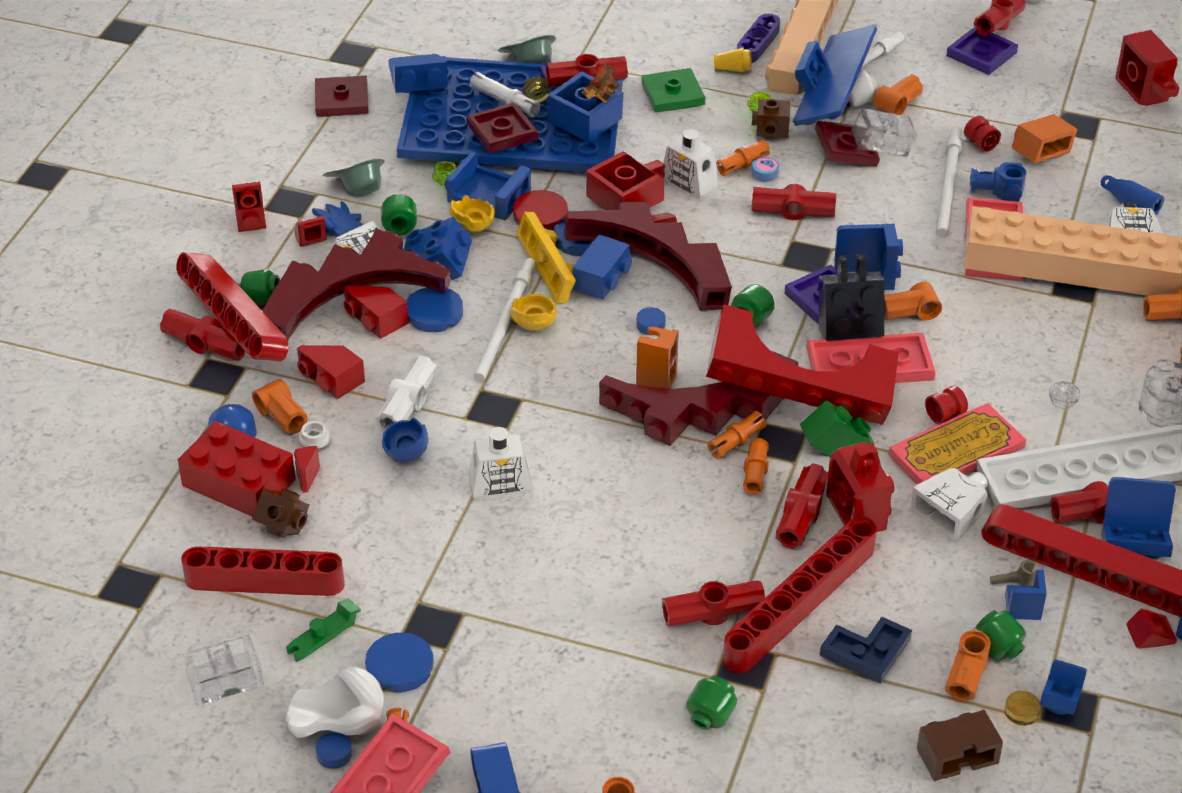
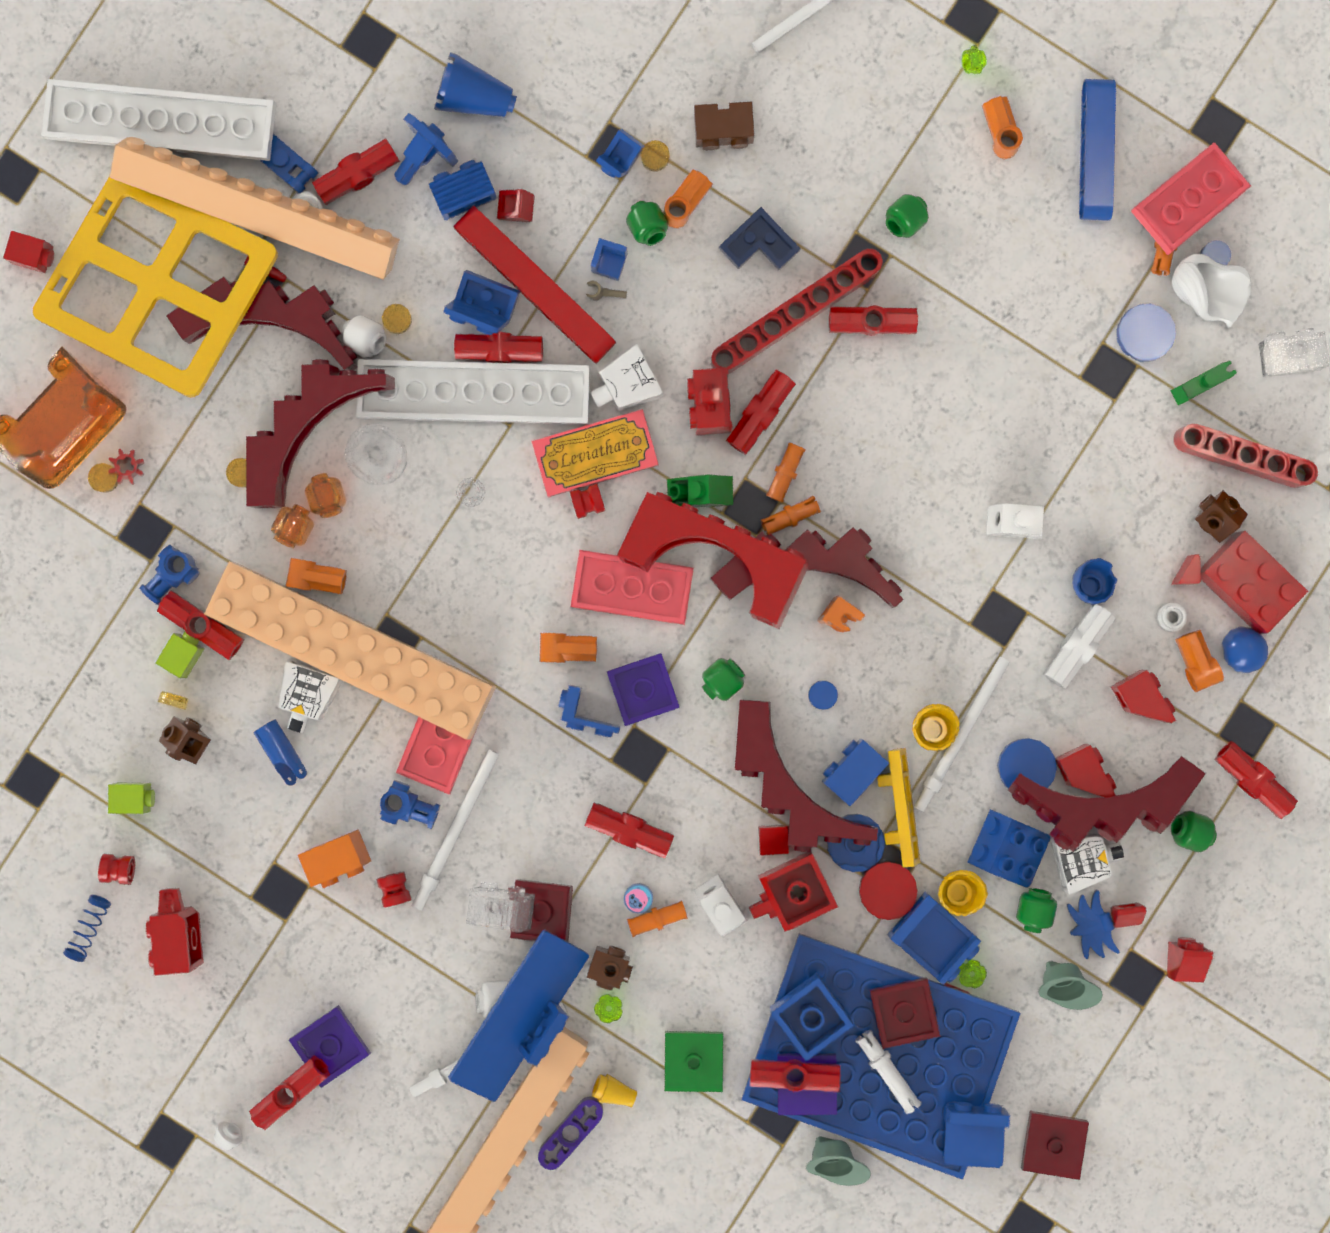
camera: 165 degrees left, 45 degrees up
(232, 307) = (1230, 797): red beam -> none
(536, 89) = (853, 1069): clear yellow tile -> none
(602, 85) = (799, 1019): clear orange tile -> none
(840, 290) = (635, 636): black hinge -> none
(895, 99) = (462, 976): orange piece -> none

